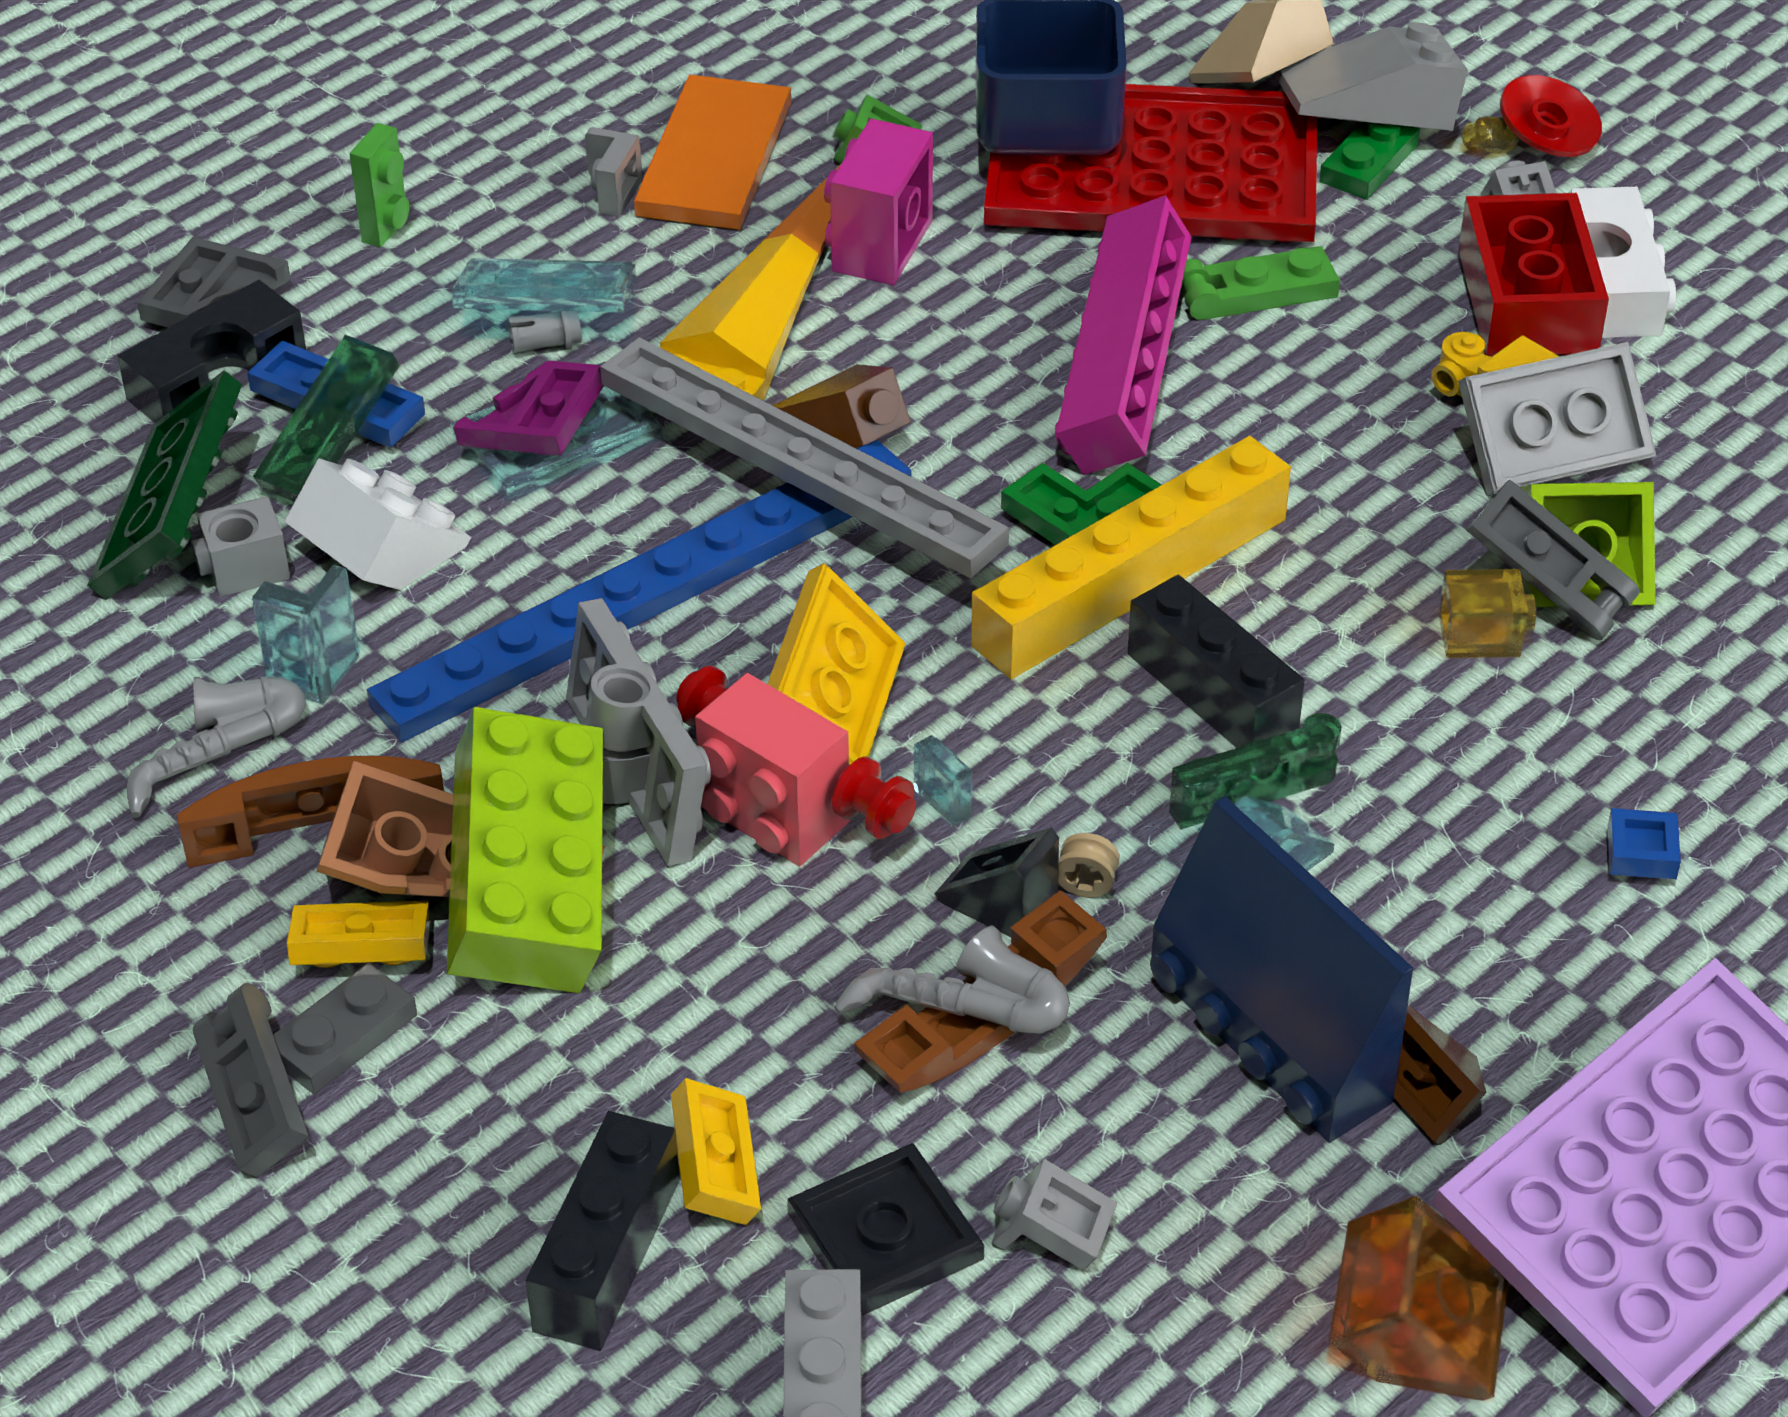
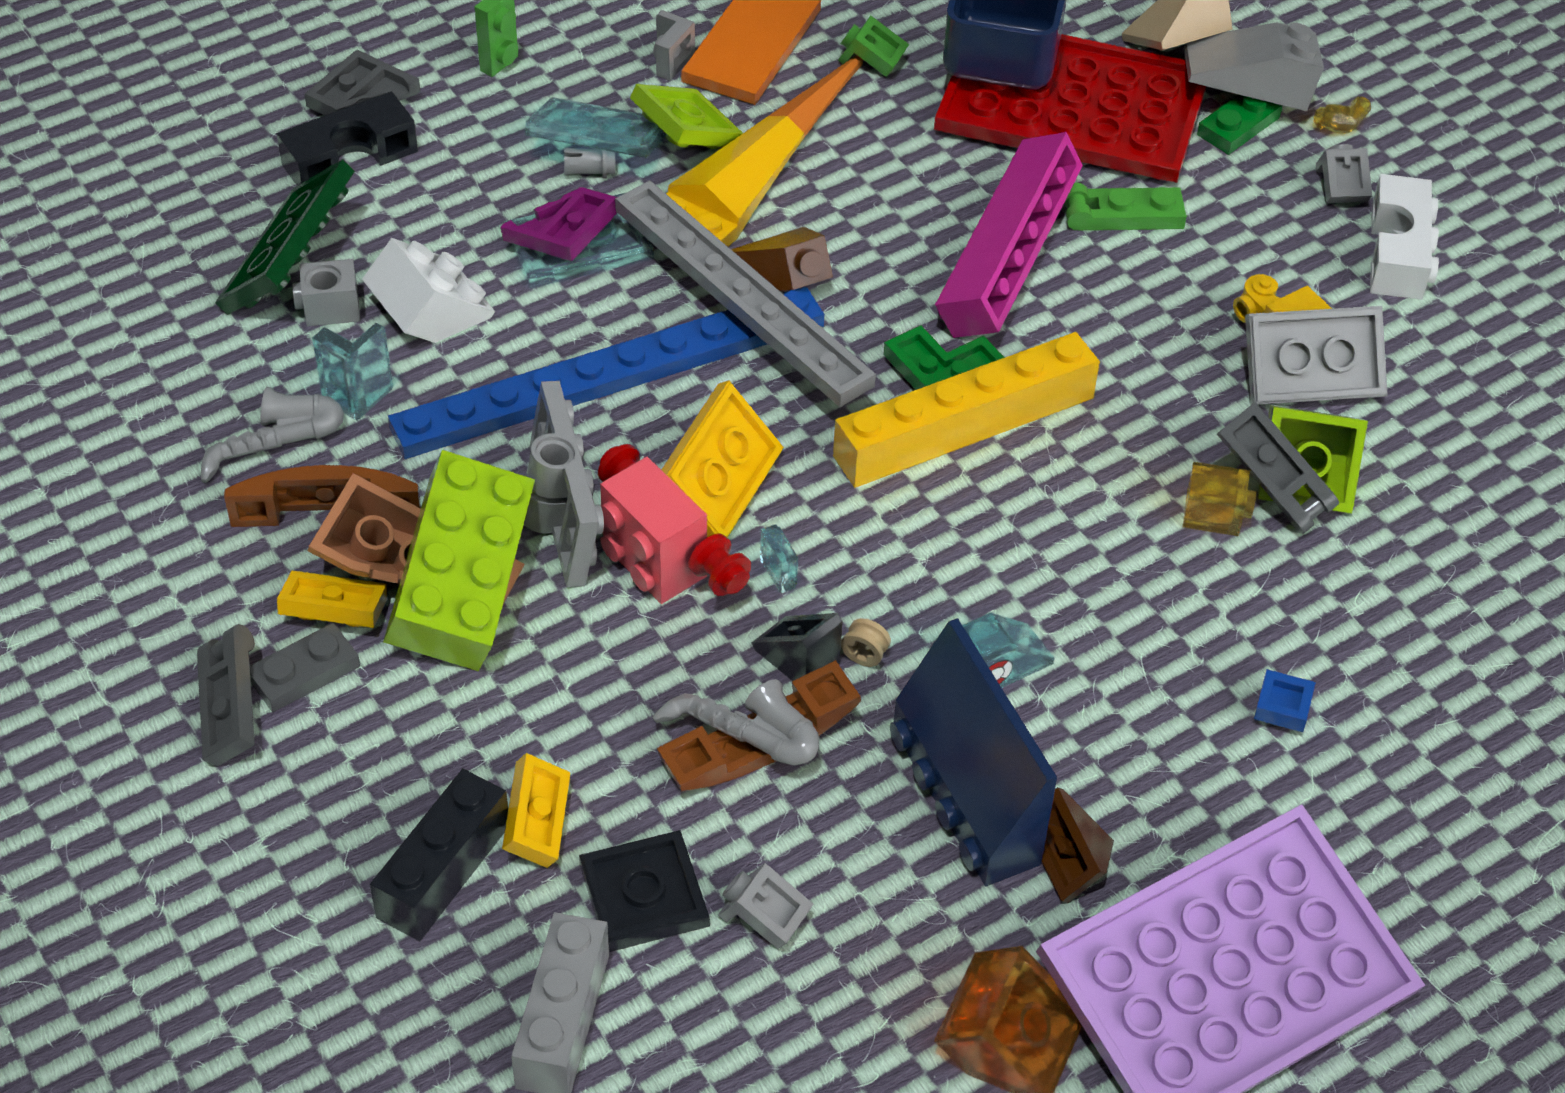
camera: 10 degrees right, 5 degrees up
(290, 372) = (427, 186): blue plate -> none
(327, 415) = (413, 203): clear green plate -> none
(658, 254) = (684, 116): none -> lime plate
(880, 201) = (857, 101): dark pink brick -> none
(1213, 664) = (1002, 506): black brick -> none
(1260, 770) = (1012, 592): clear green plate -> none
(1533, 272) = (1332, 236): red brick -> none
(1550, 115) = (1385, 111): red dish -> none

